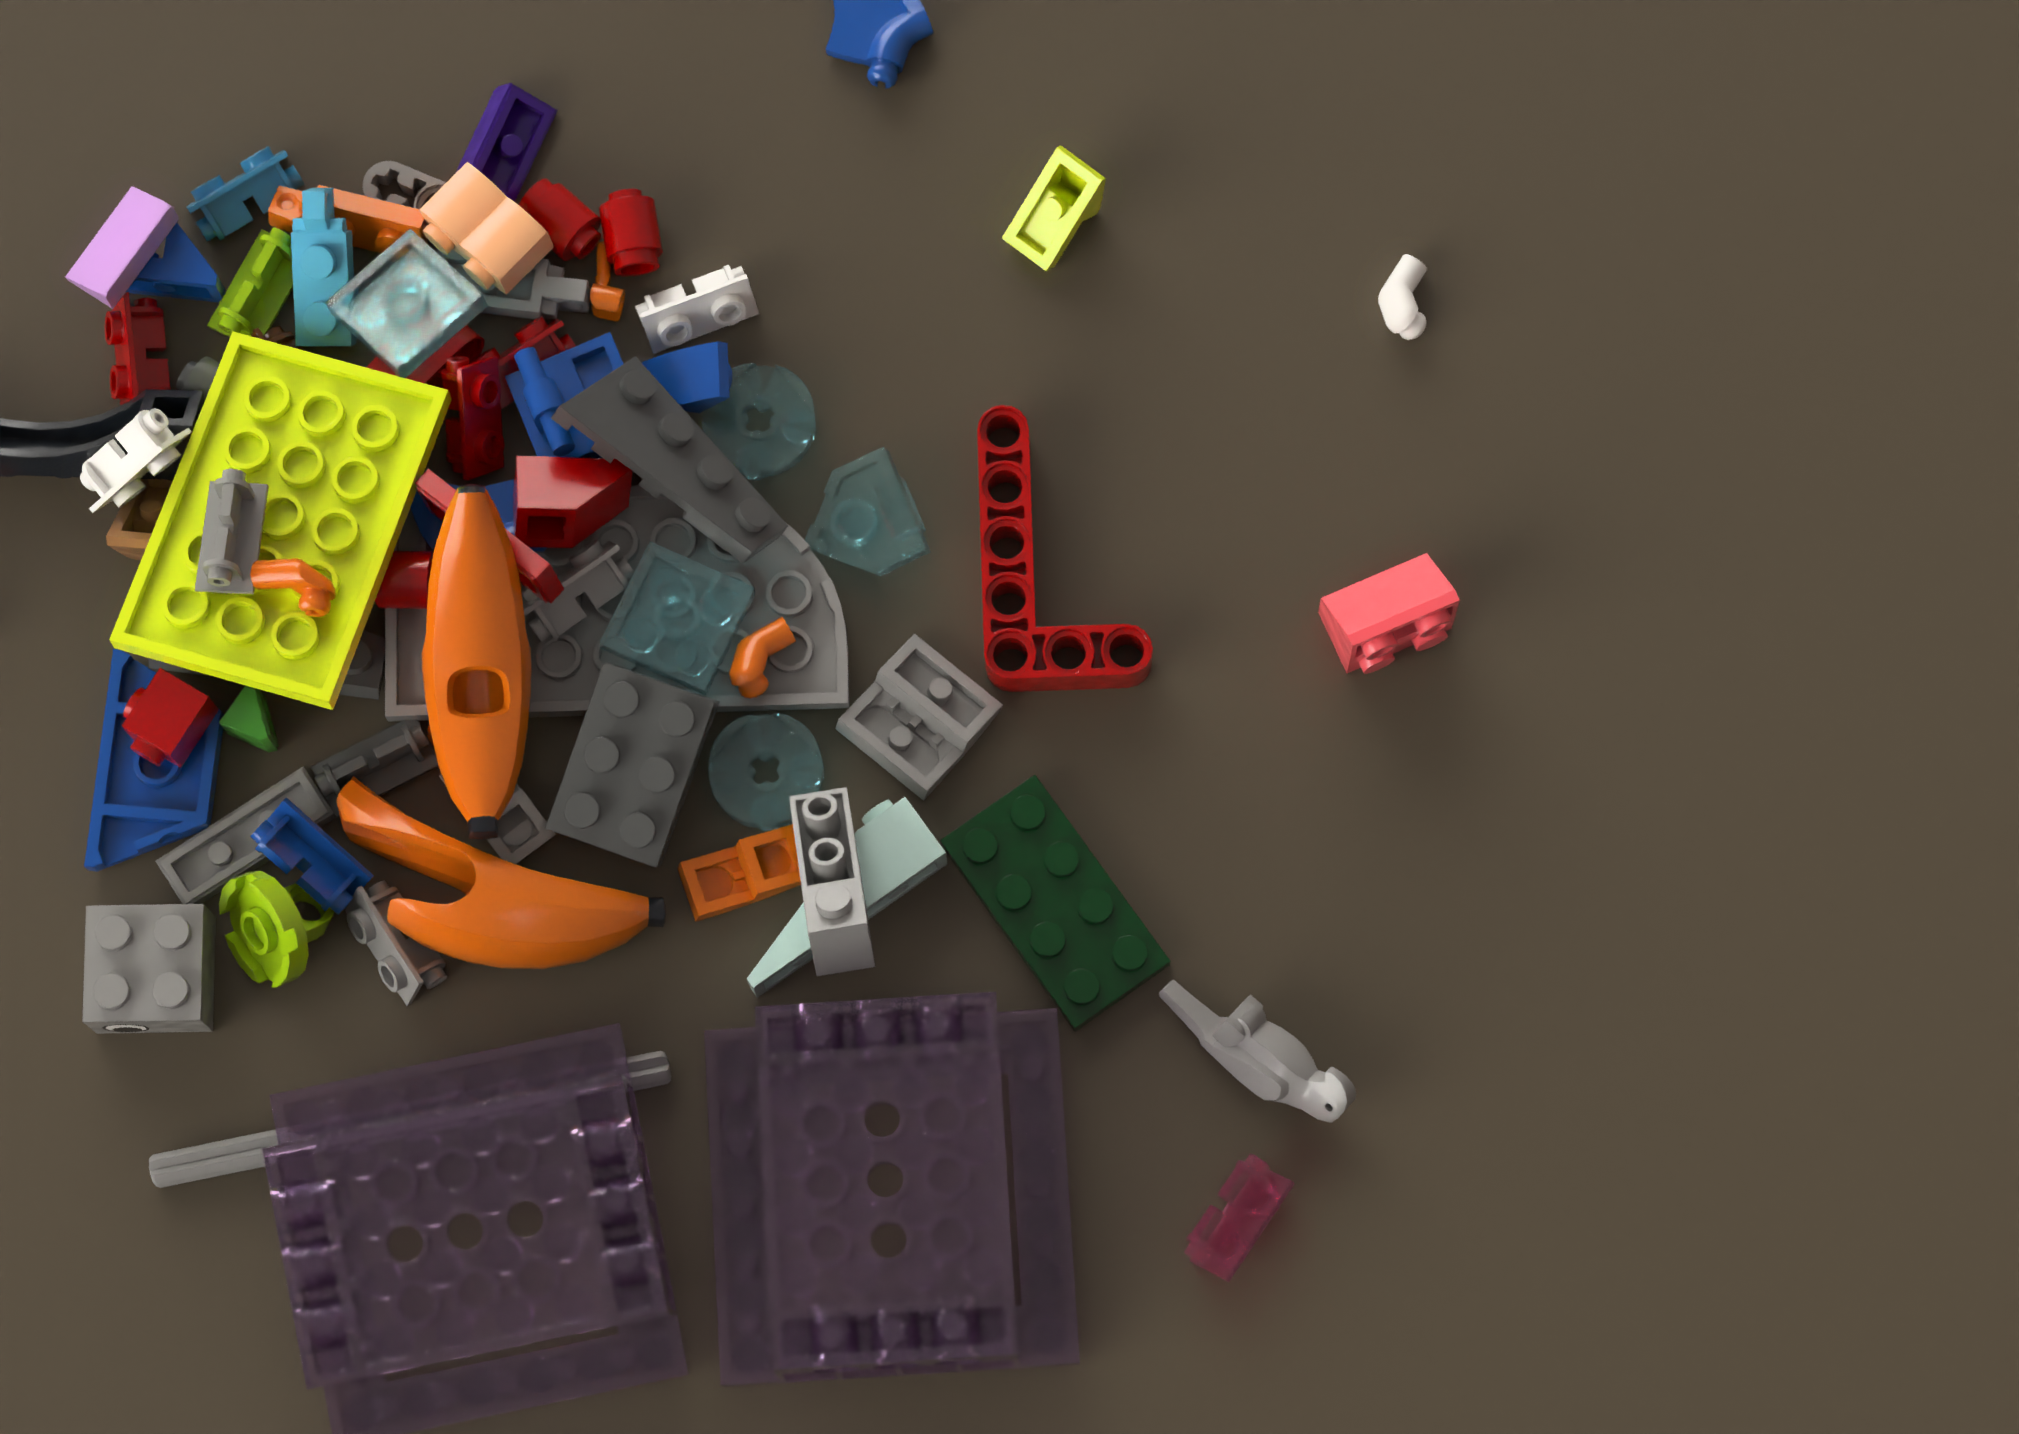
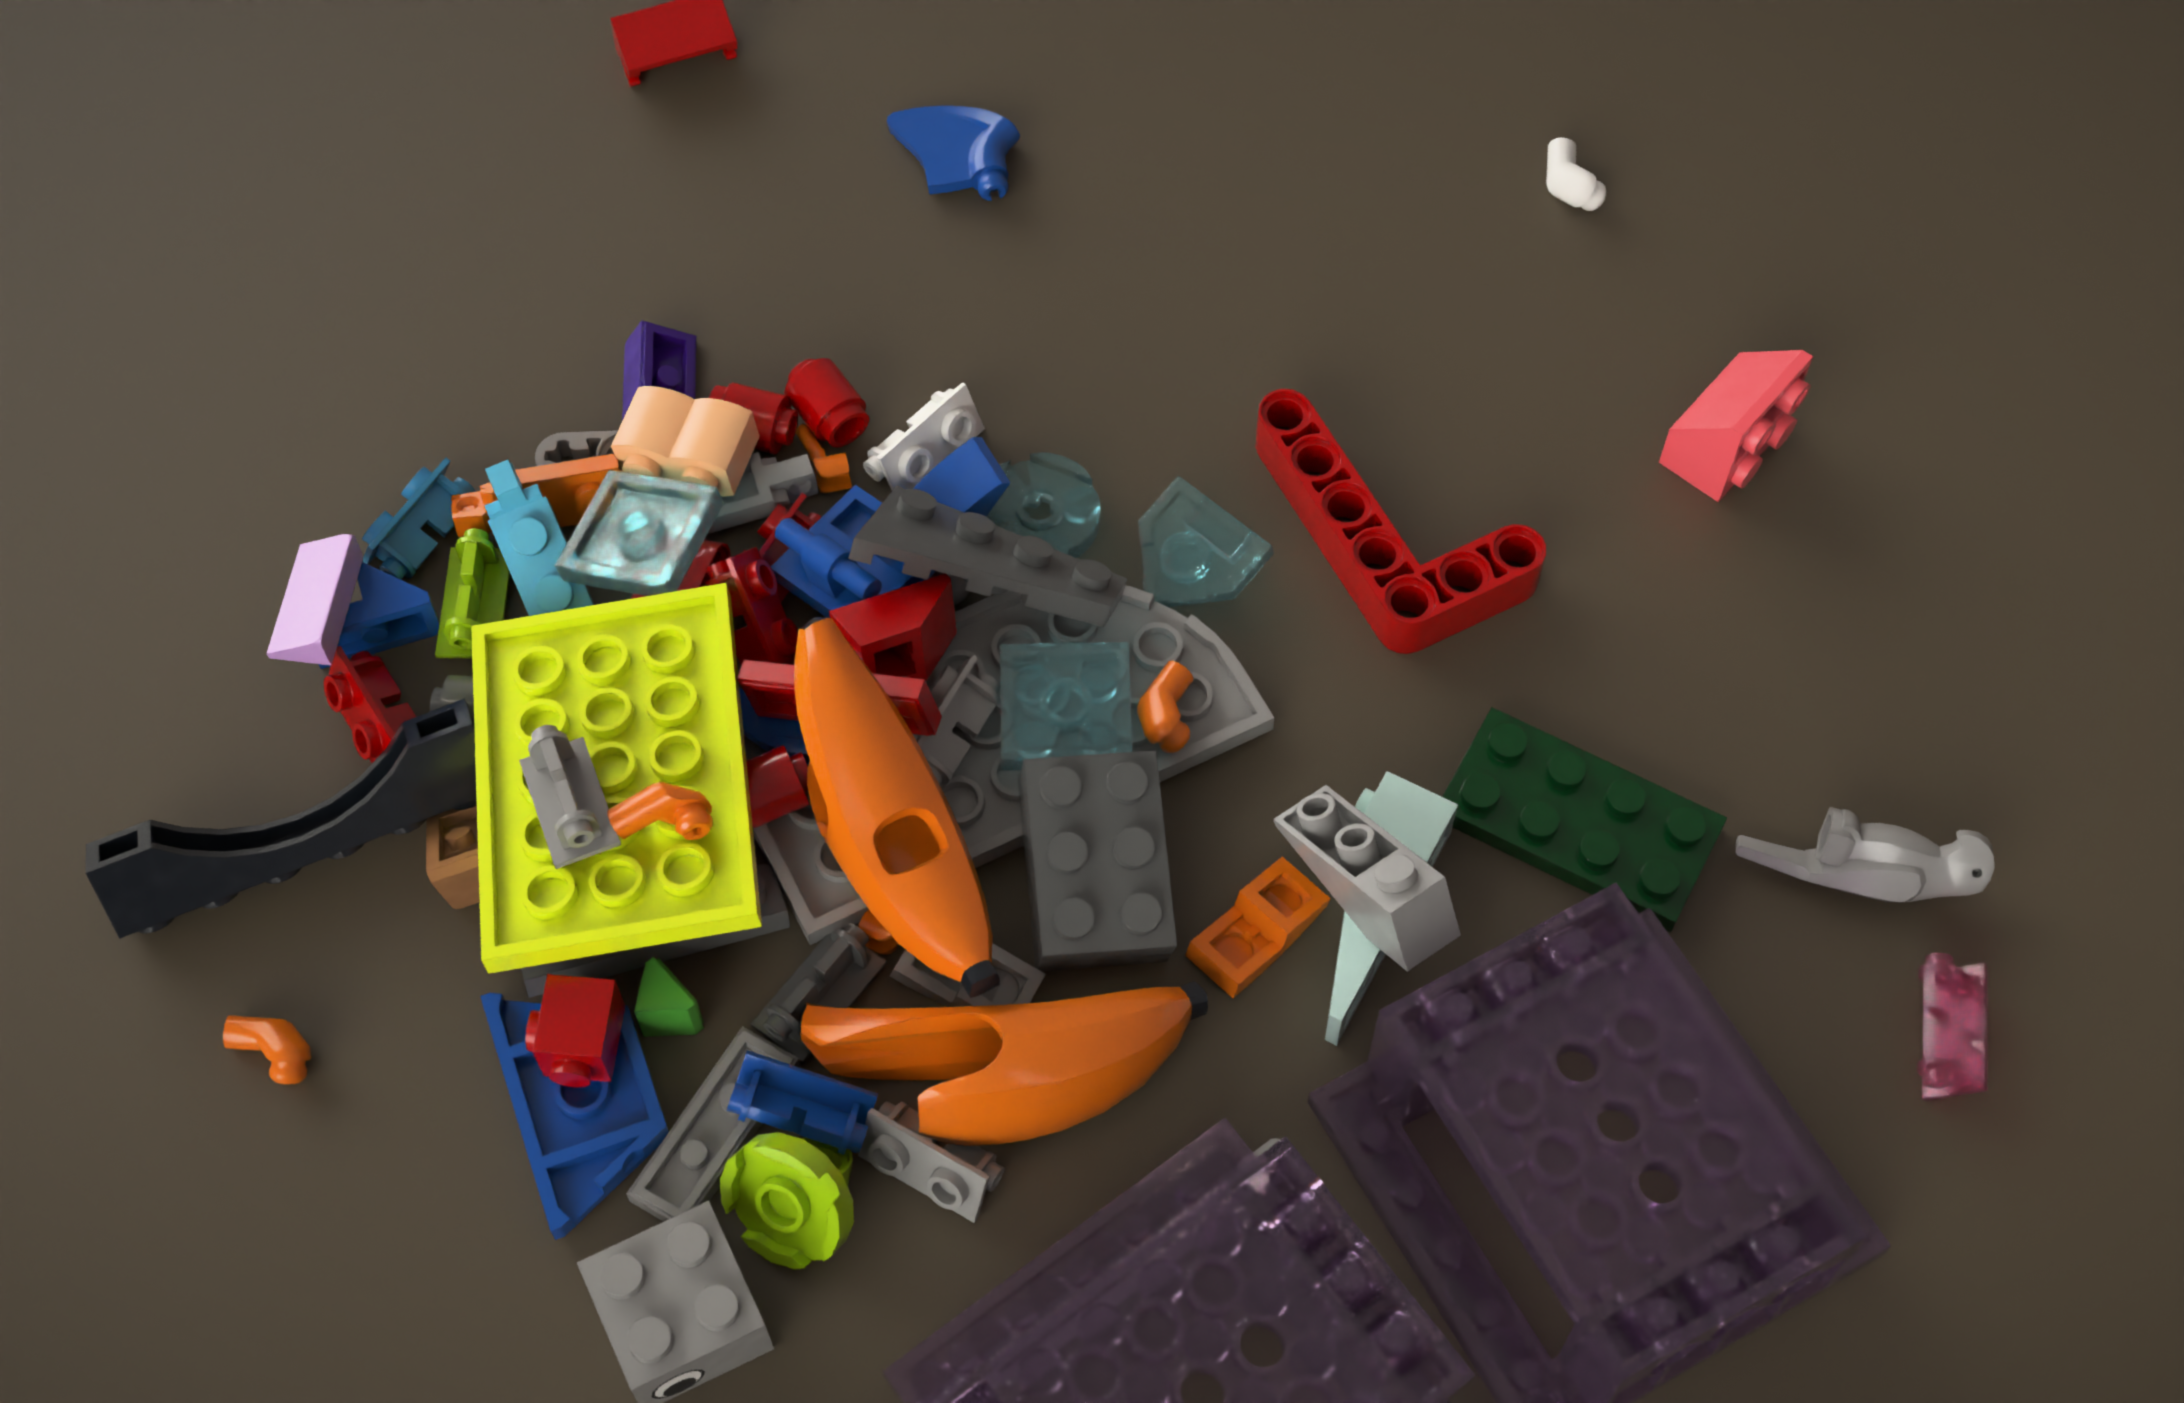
camera: 30 degrees left, 15 degrees down
(149, 449) = (412, 810): white hinge -> none
(764, 737) = (1218, 853): clear light blue plate -> none
(919, 716) = (1345, 707): light grey slope -> none
(1055, 208) = (1220, 217): neon yellow slope -> none

